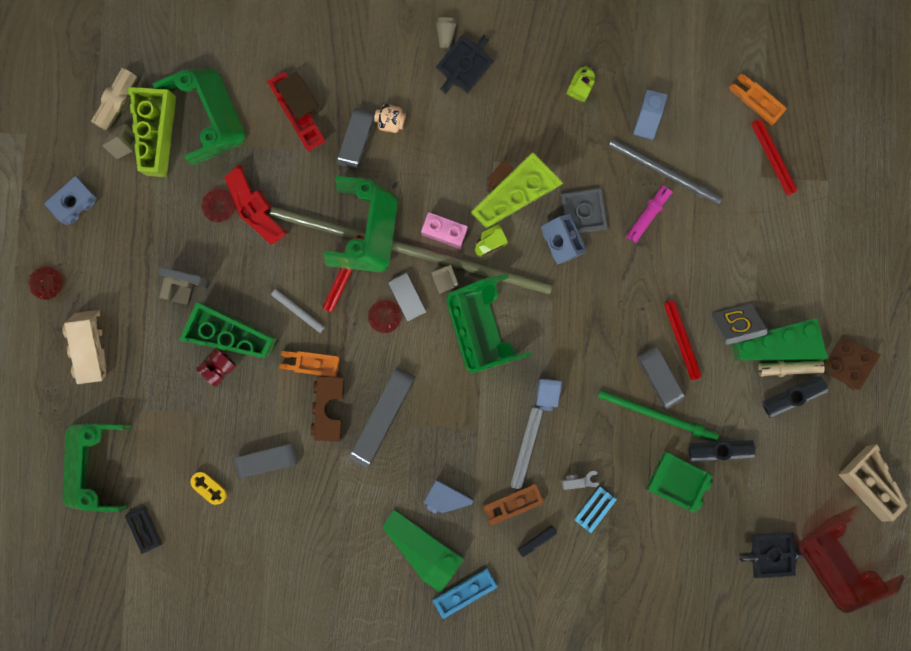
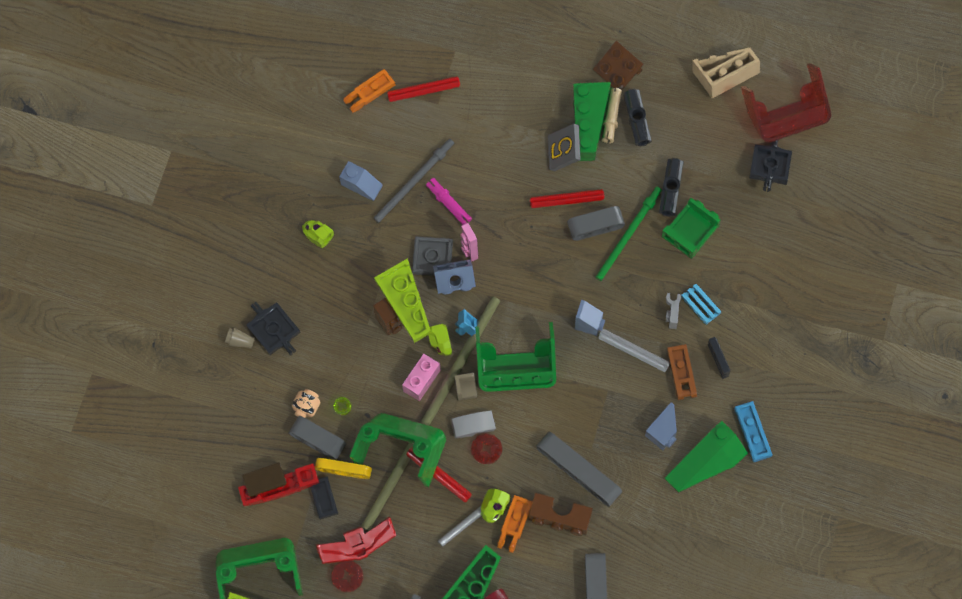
camera: 75 degrees left, 15 degrees down
(295, 162) = (324, 498): none -> black tile
(323, 338) = (494, 505): none -> lime rock
(329, 173) = (343, 468): none -> yellow beam
(392, 159) = (341, 400): none -> clear neon green bush
(514, 264) = (466, 323): none -> dark azure tile
(601, 244) = (469, 242): none -> bright pink plate

